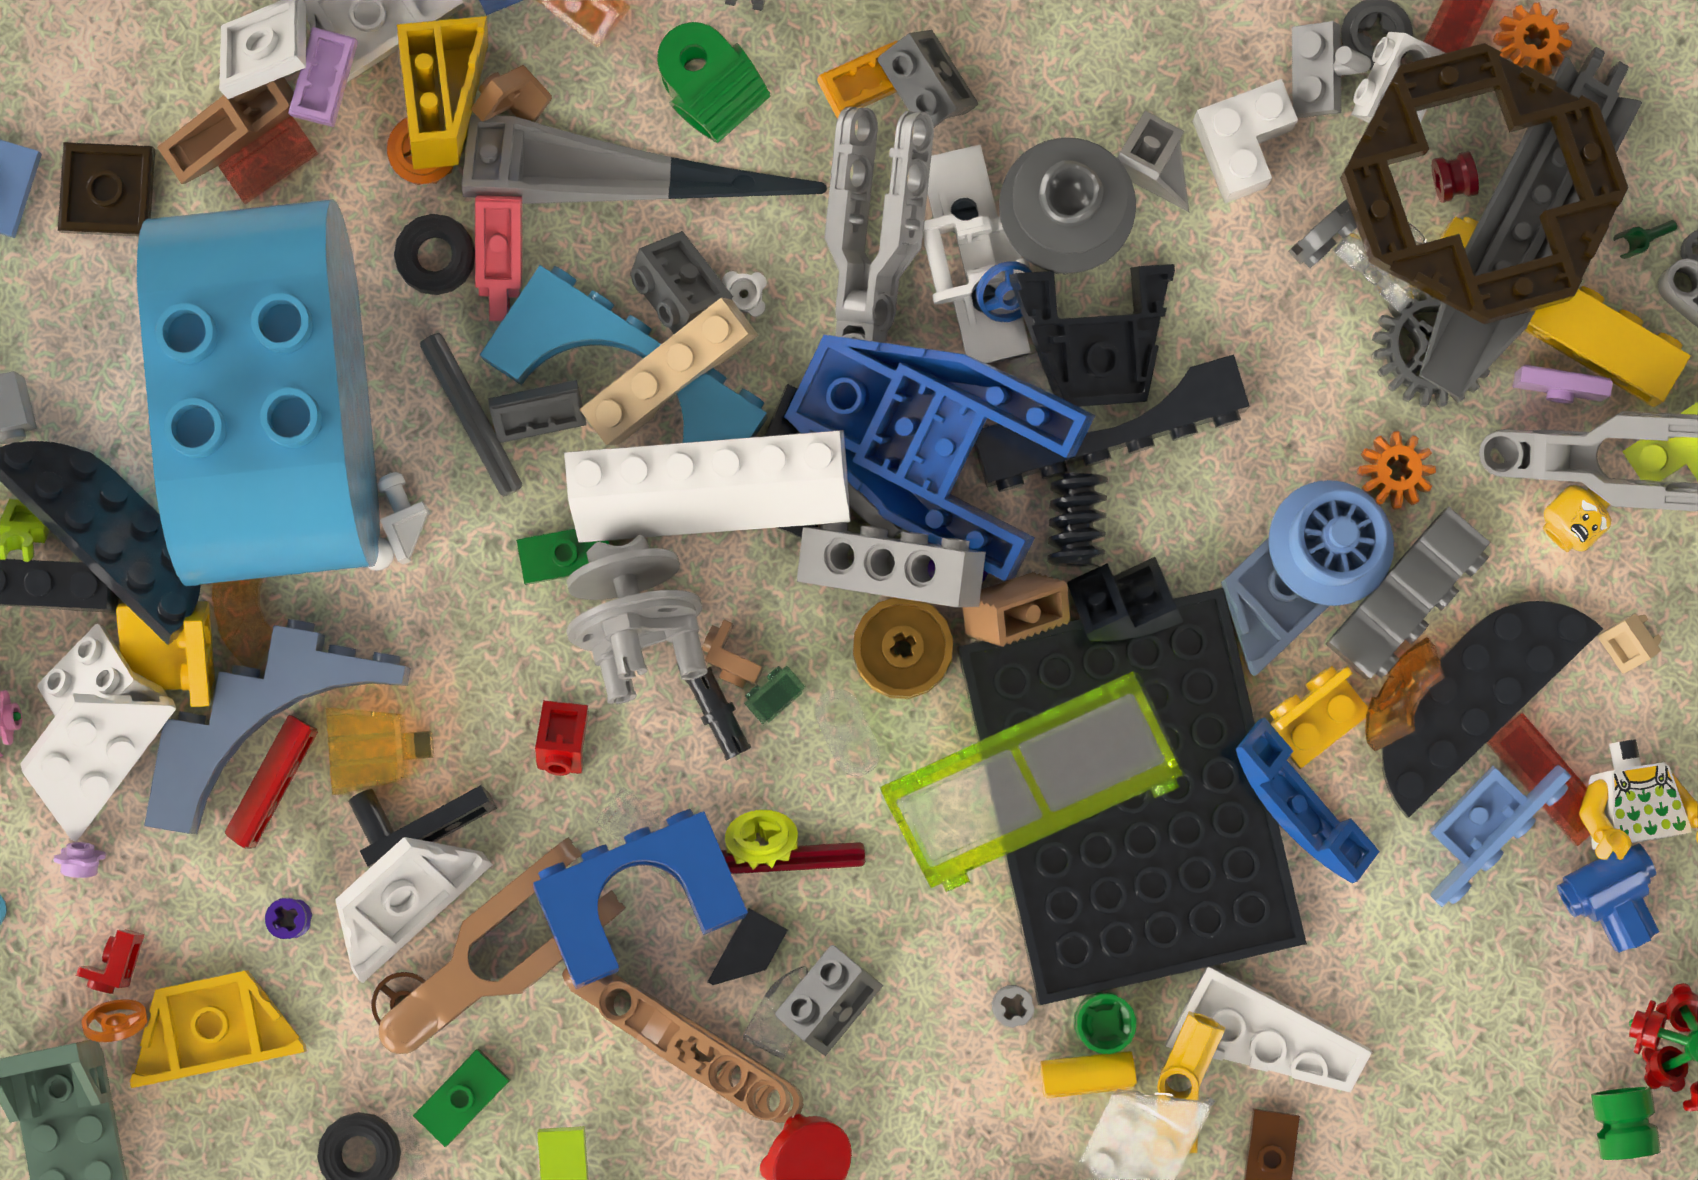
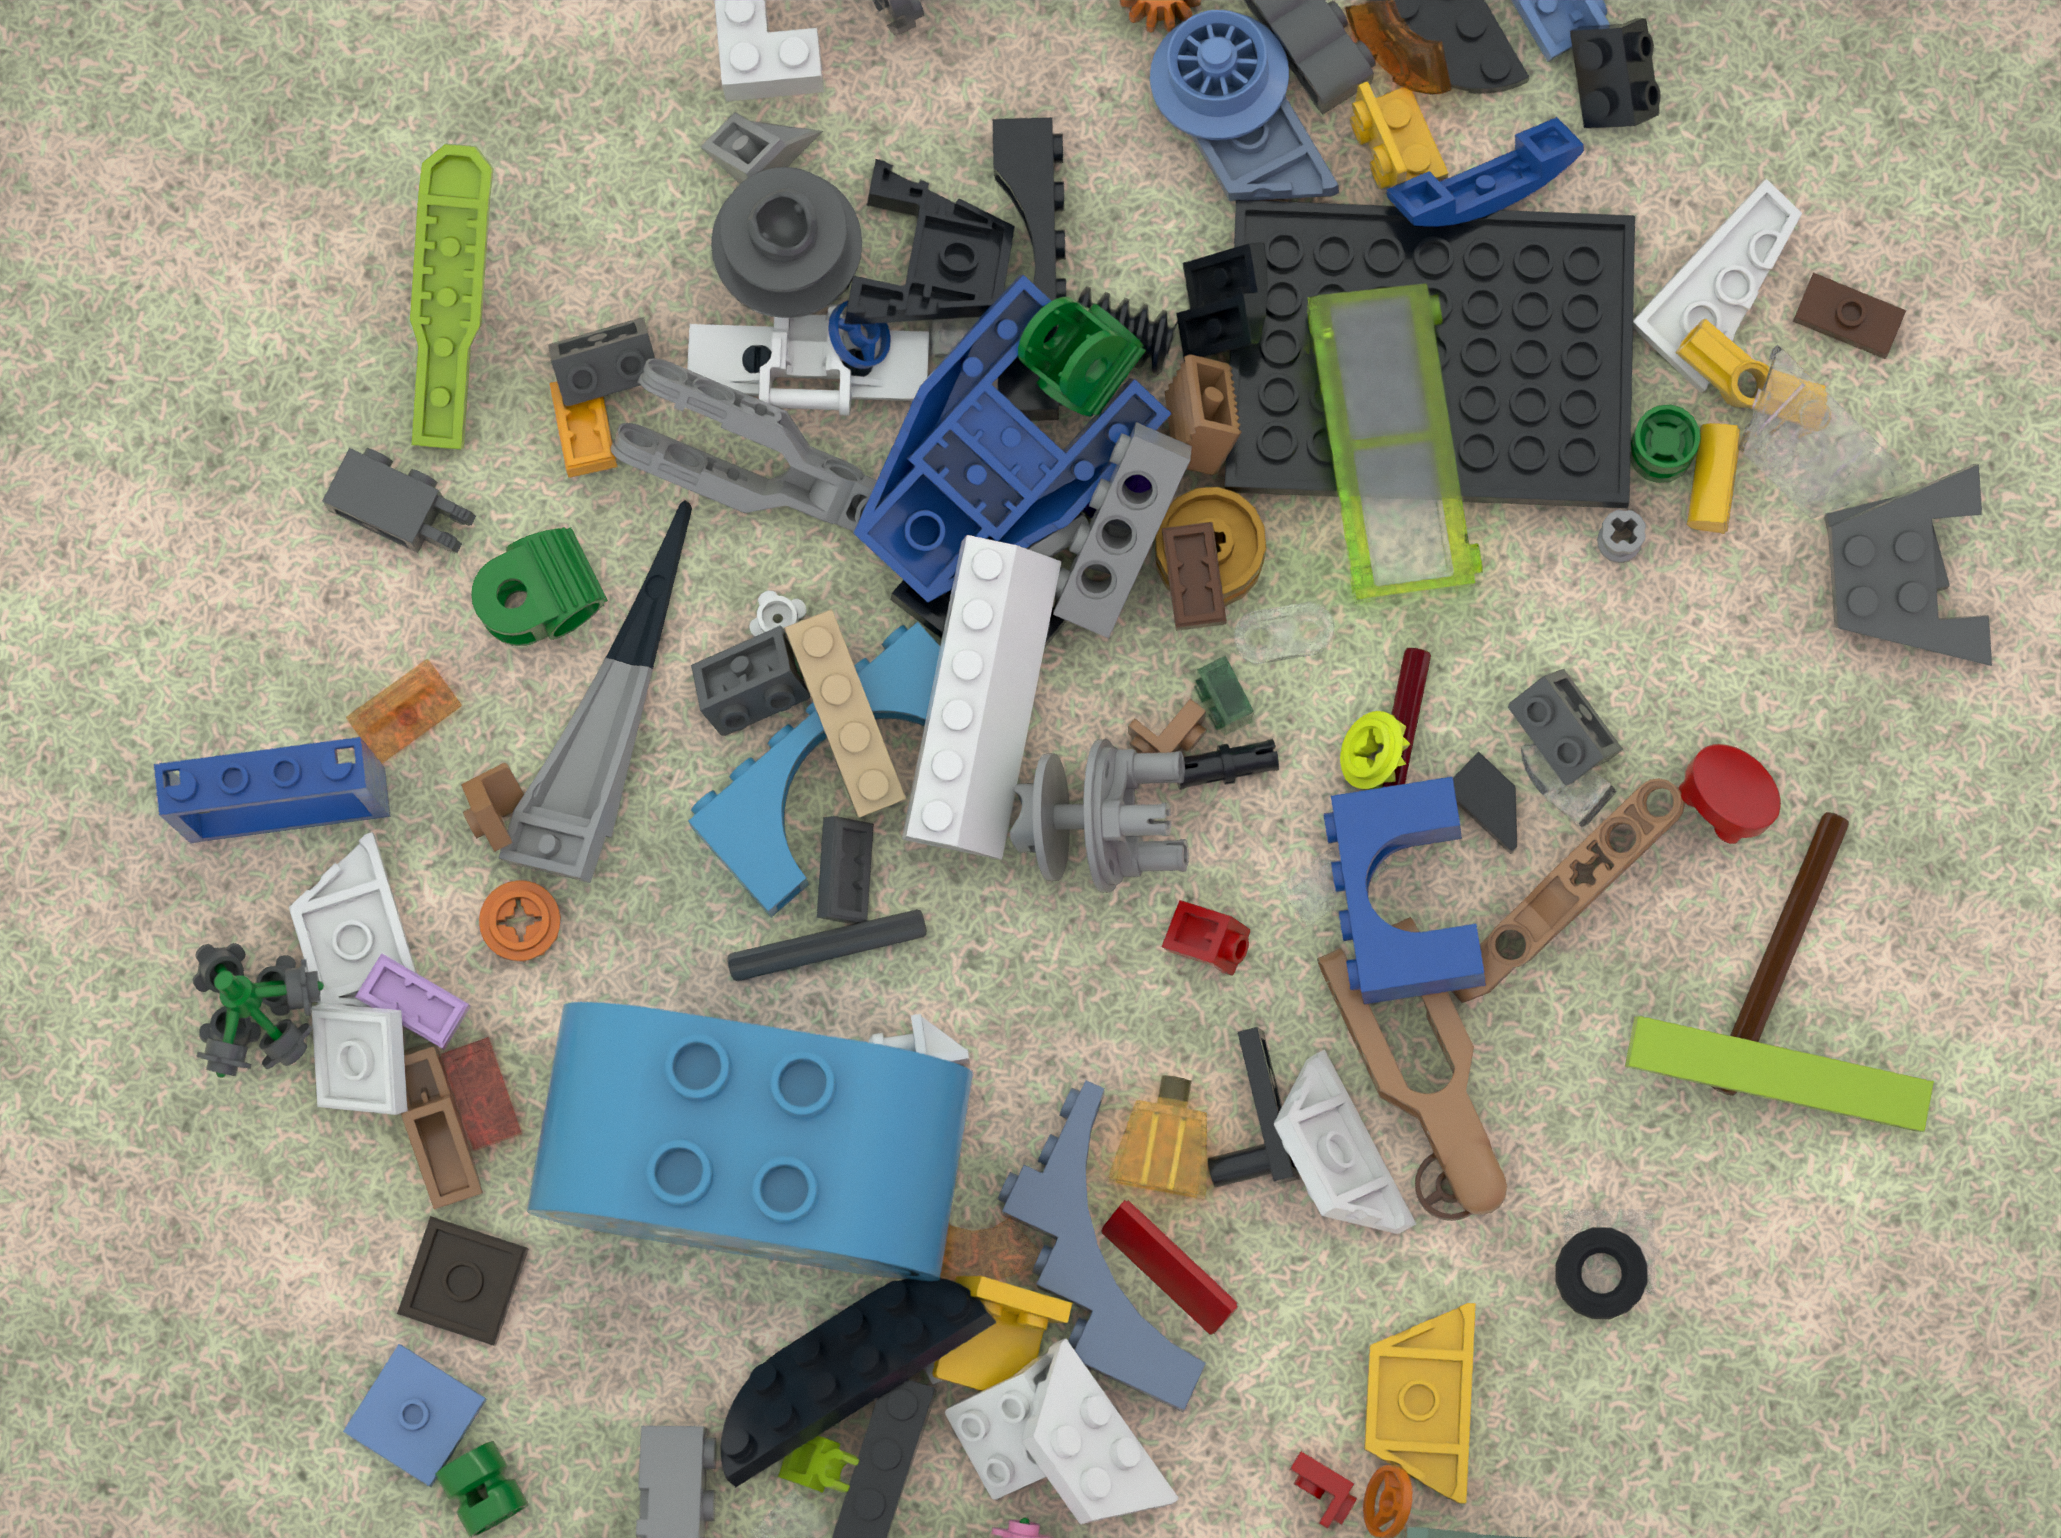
camera: 75 degrees left, 5 degrees down
(79, 860) = (1200, 1497): lavender plate -> none
(275, 915) = (1331, 1269): dark purple bush -> none
(430, 227) = (639, 907): black tyre -> none
(440, 84) = (460, 879): yellow wedge -> none
(461, 1097) = (1568, 1149): green plate -> none
(498, 251) = (660, 862): coral hinge -> none
(552, 555) = (1007, 893): green plate -> none
(863, 639) = (1194, 576): none -> reddish brown plate
(1034, 492) = (1083, 358): none -> green piece
(1429, 893) = (1615, 74): none -> black bracket

